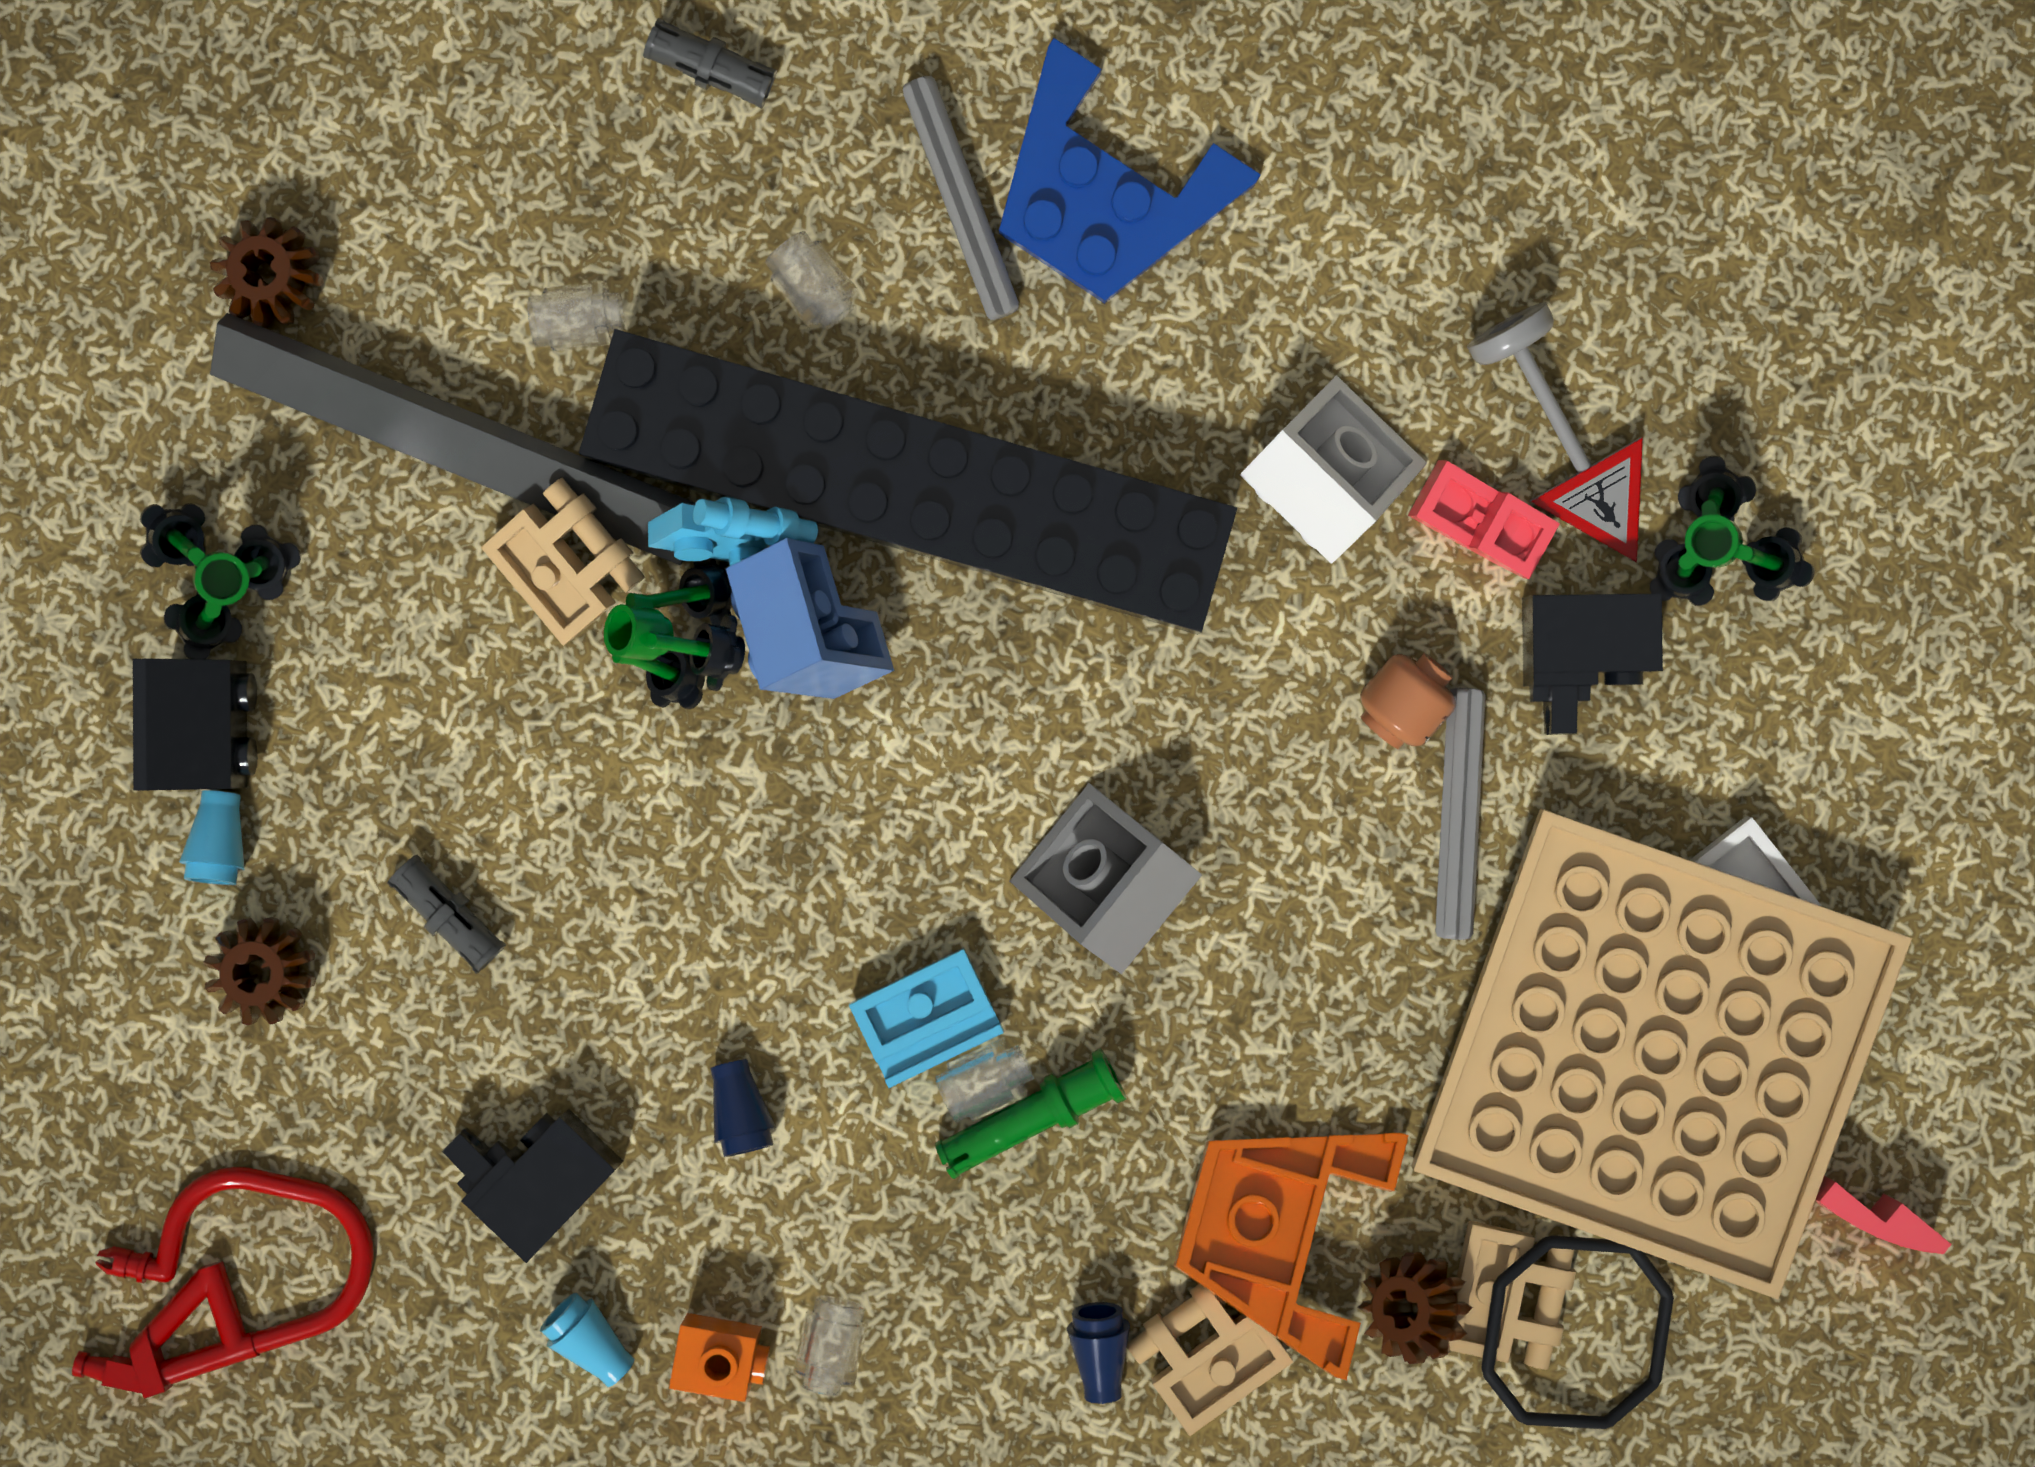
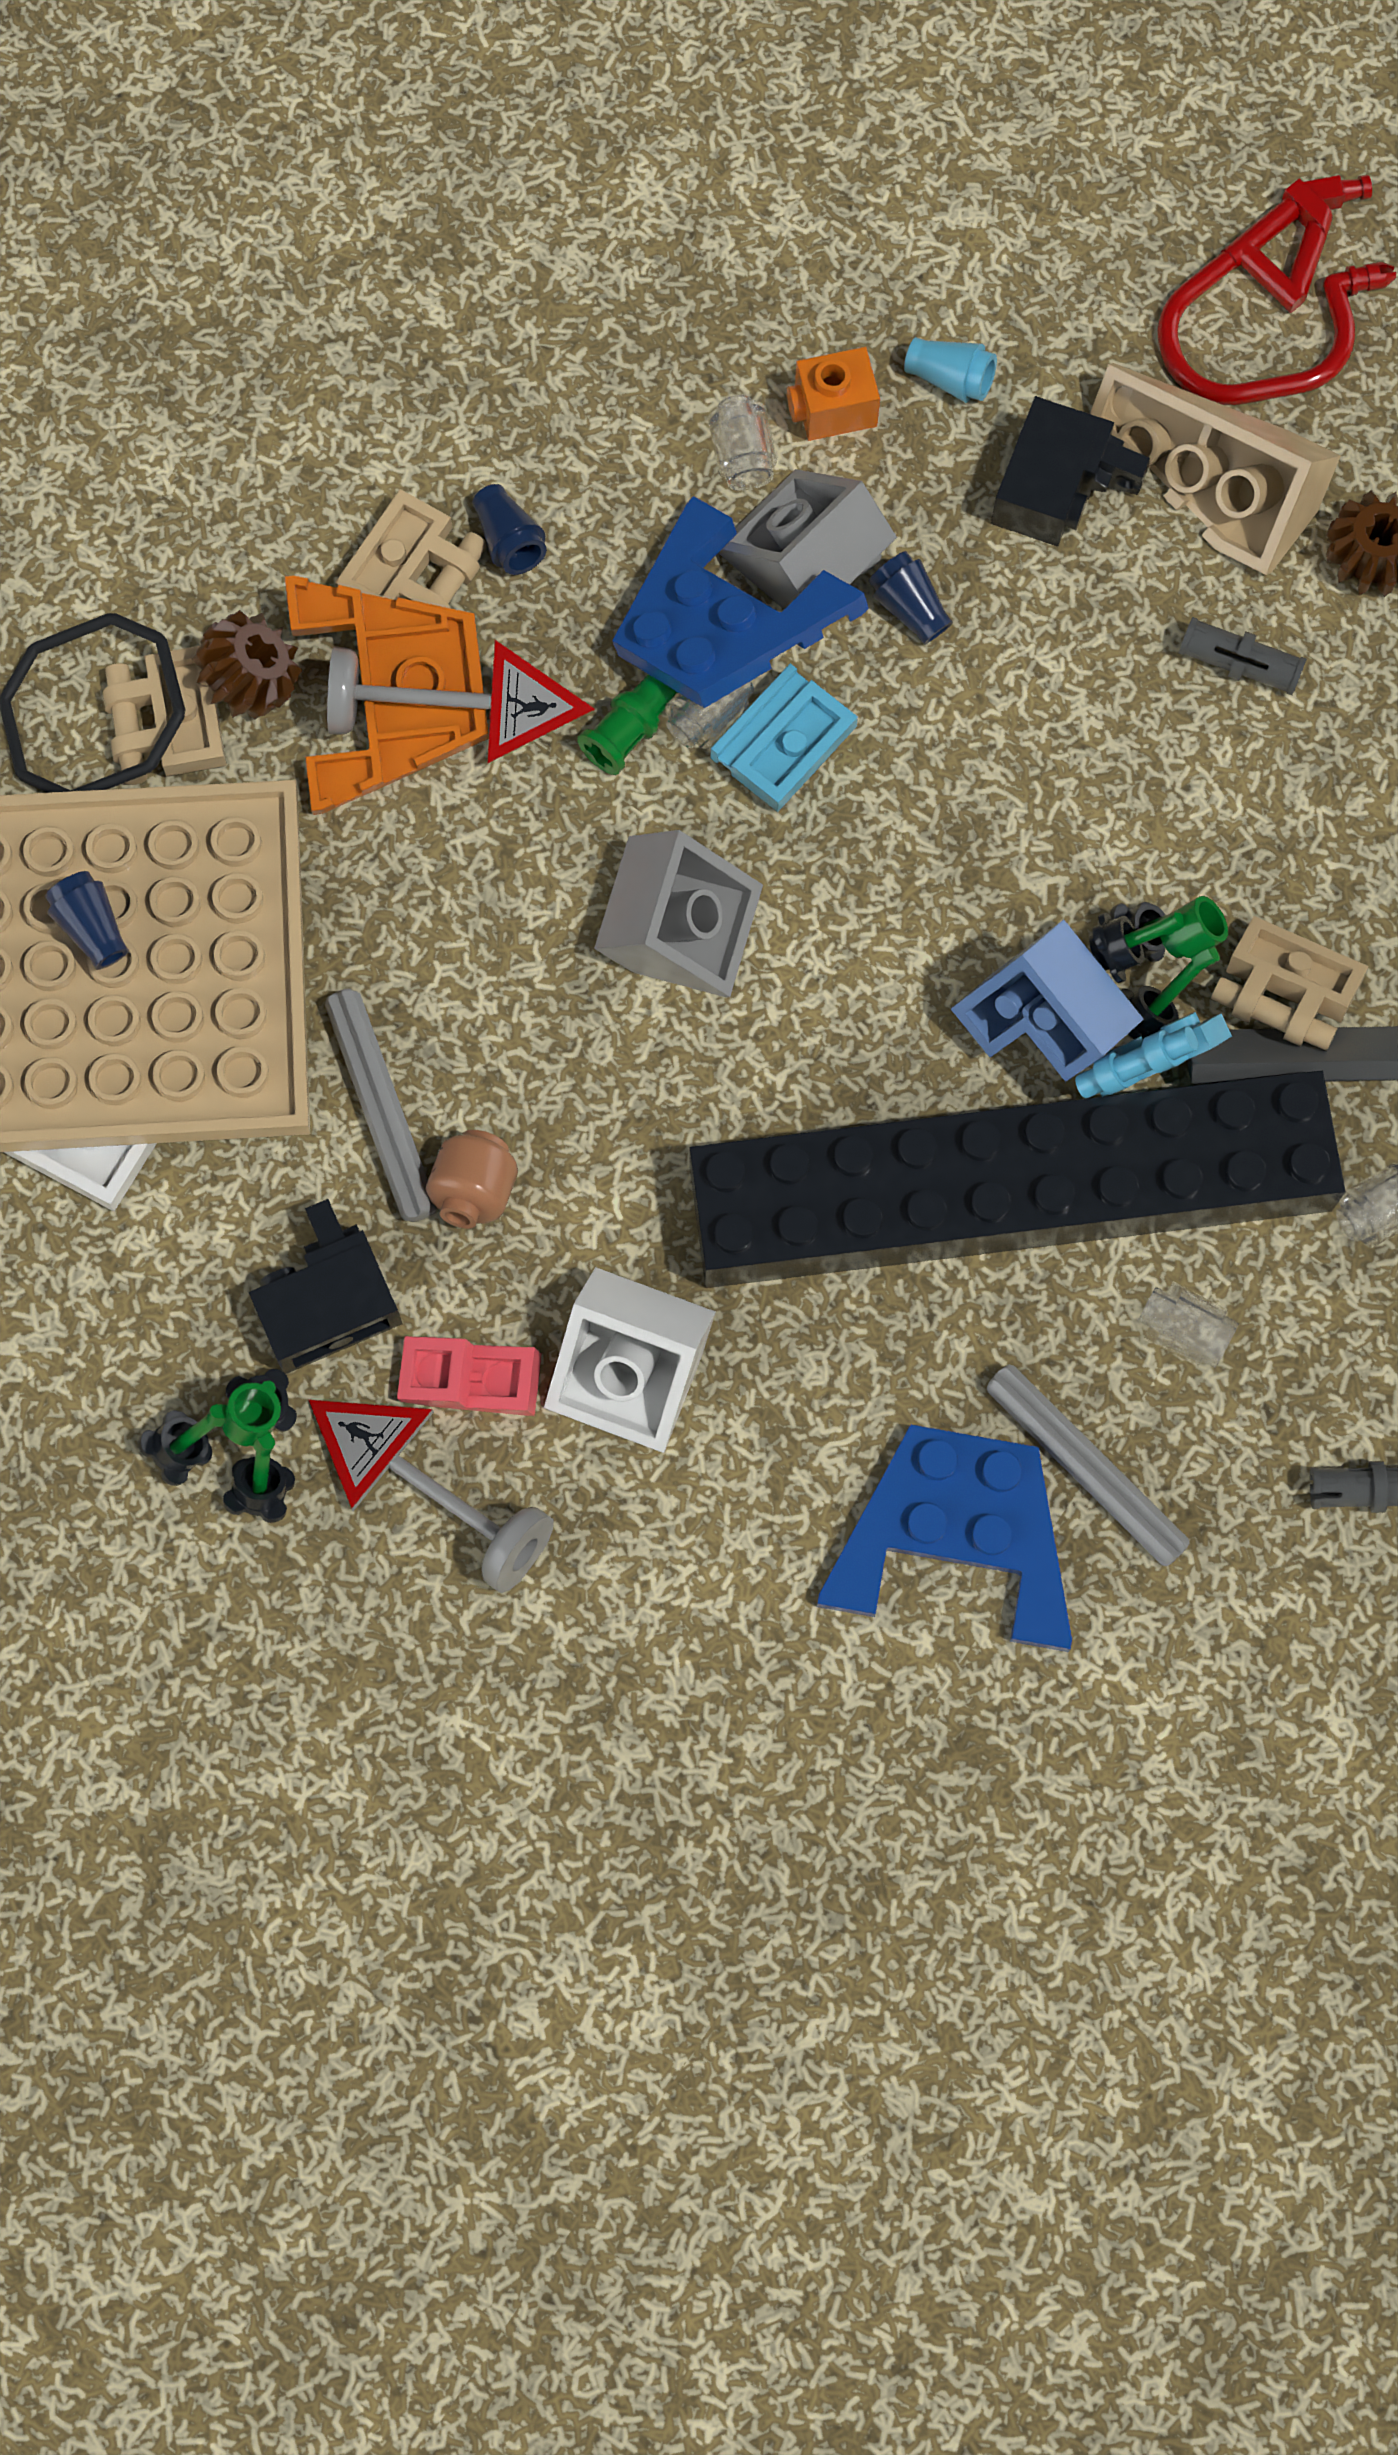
camera: 155 degrees right, 15 degrees down
(362, 1110) = (1233, 471): none -> tan wedge
(814, 1212) = (807, 528): none -> light grey slope
(962, 1153) = (706, 632): none -> blue wing
(1167, 1154) = (521, 702): none -> light grey piece
(1673, 1099) = (86, 916): none -> dark blue cone

